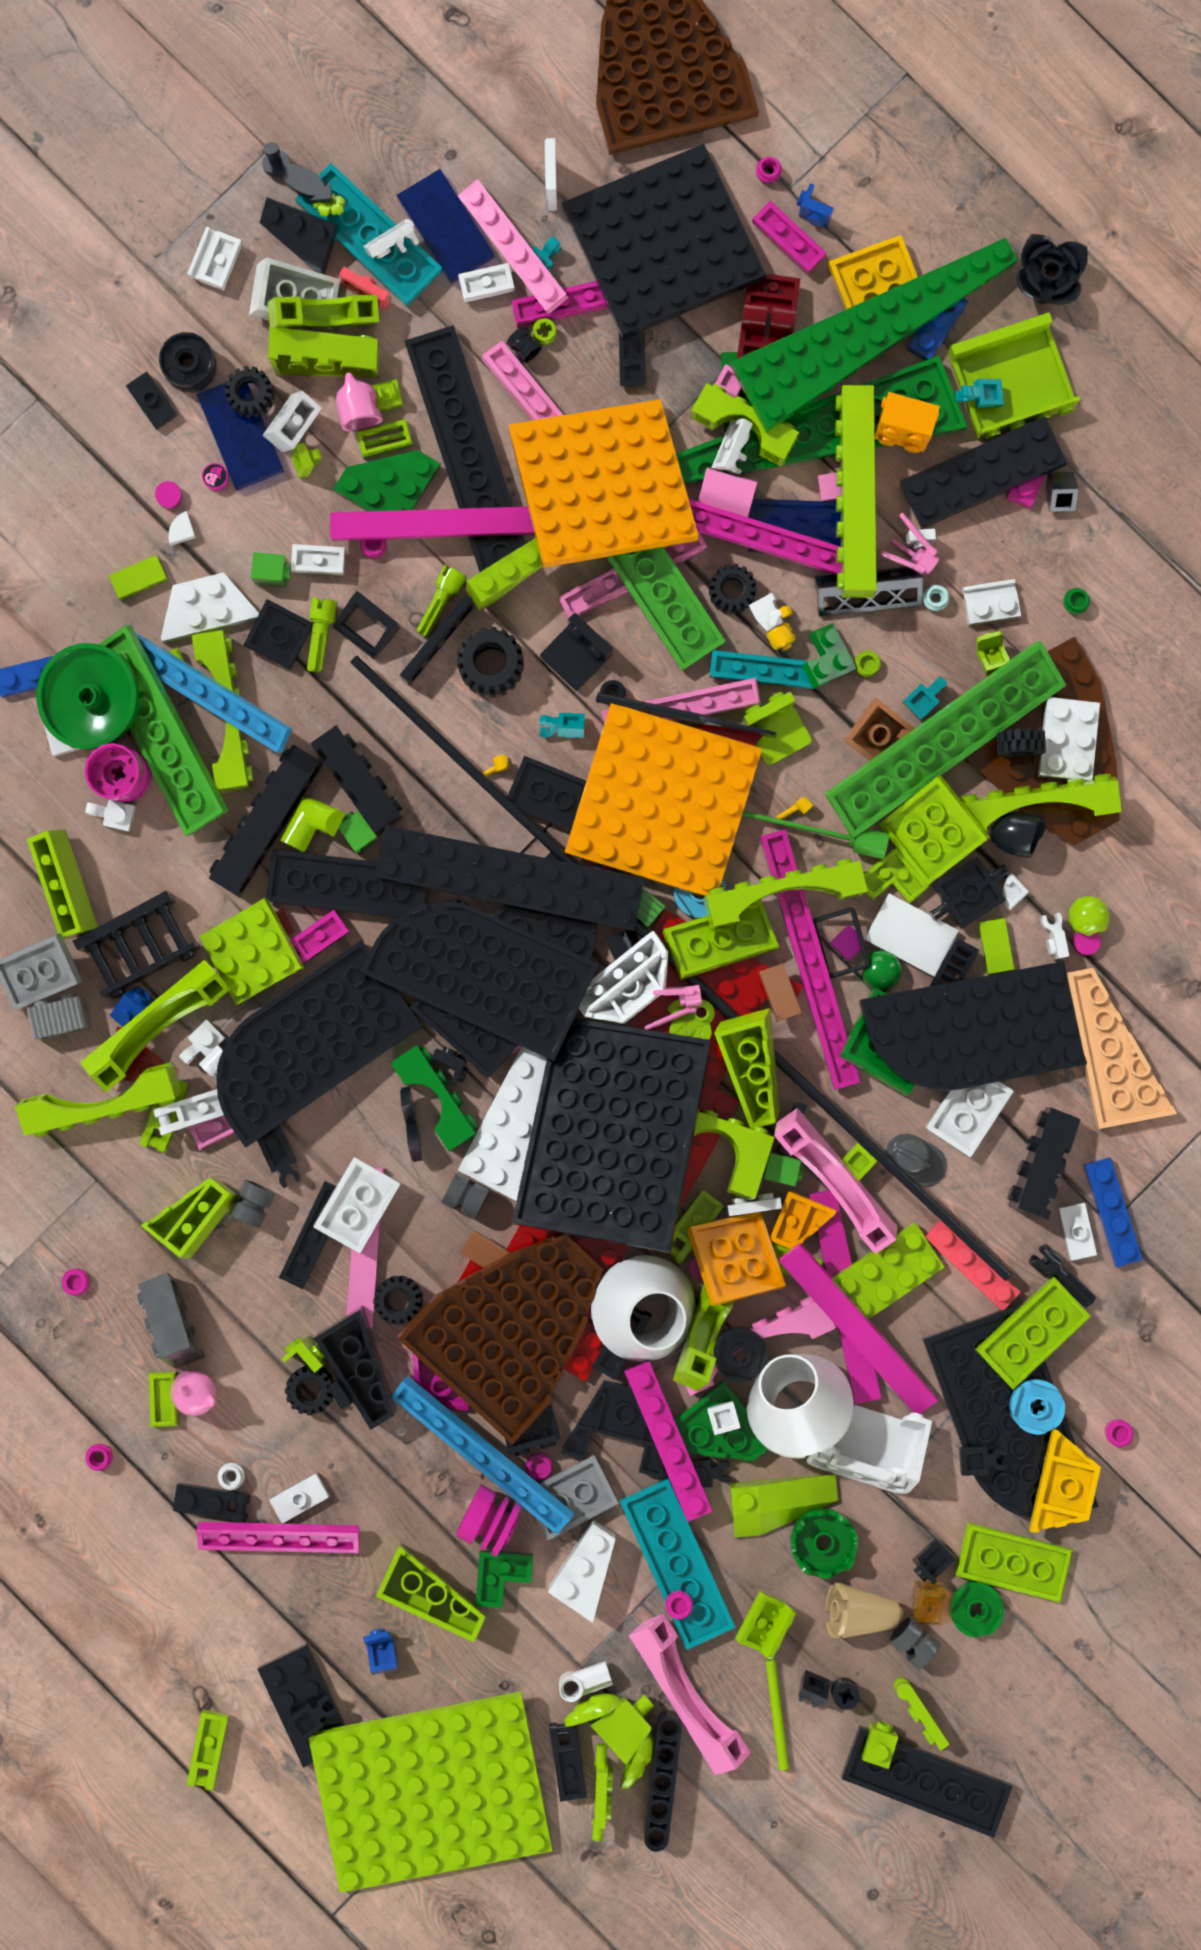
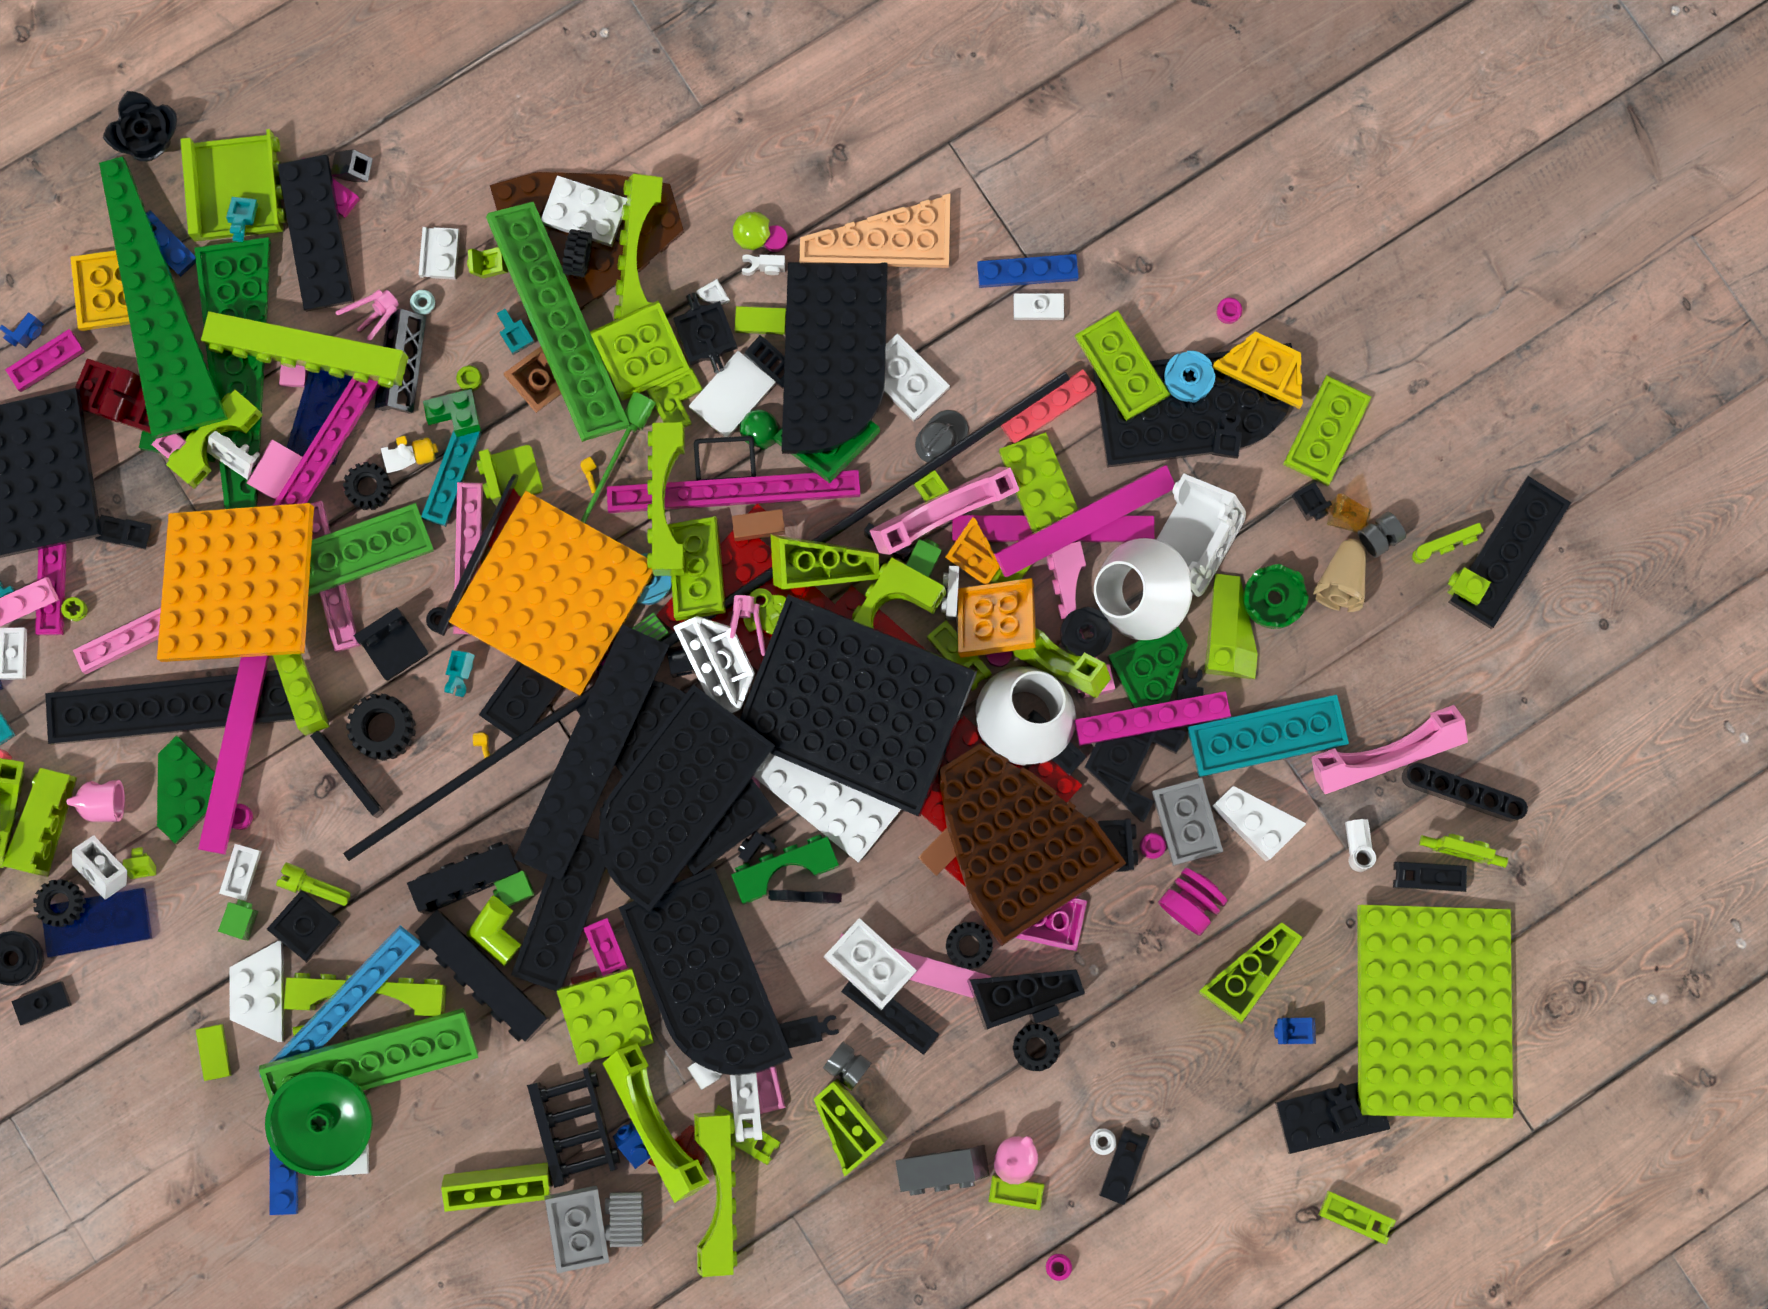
camera: 80 degrees left, 5 degrees down
(75, 1282) = (885, 1256): dark pink tile -> none
(103, 770) = (386, 1109): dark pink wheel -> none
(115, 815) = (442, 1122): white plate -> none
(168, 495) = (139, 1005): dark pink tile -> none
(181, 529) = (176, 1000): white tile -> none
(204, 1040) = (680, 1081): white plate -> none
(215, 476) = (133, 956): tile -> none
(278, 1537) = (1169, 1107): dark pink plate -> none
(299, 1497) = (1136, 1080): white plate -> none
(308, 1351) = (1001, 1034): lime bracket -> none
(376, 614) = (305, 829): black tile -> none
(384, 439) = (148, 784): lime tile -> none
(388, 395) = (97, 770): lime tile -> none
(448, 584) = (296, 751): lime piece -> none
(465, 1195) = (884, 859): dark grey wheel -> none
(482, 1455) = (1130, 894): dark azure plate -> none
(496, 1570) = (1240, 904): green plate -> none
(524, 344) = (81, 630): black wheel -> none
(621, 1729) = (1408, 819): lime torso -> none
(679, 1604) = (1305, 741): dark pink tile -> none
(723, 1417) = (1141, 662): white plate -> none
(766, 1624) = (1340, 665): lime bracket -> none
(777, 1715) = (1424, 674): lime bar -> none
(814, 1688) = (1406, 635): black tile -> none
(842, 1688) = (1413, 612): black wheel -> none
(847, 943) = (726, 454): magenta tile -> none
(906, 422) = (251, 289): light orange brick -> none
(912, 541) = (363, 311): white plate -> none
(991, 1604) = (1361, 487): green plate -> none
(1018, 833) = (660, 276): black piece -> none
(1043, 1163) = (969, 321): black wedge -> none
(1052, 1266) = (1064, 335): black piece -> none
(1076, 601) = (457, 176): green plate -> none

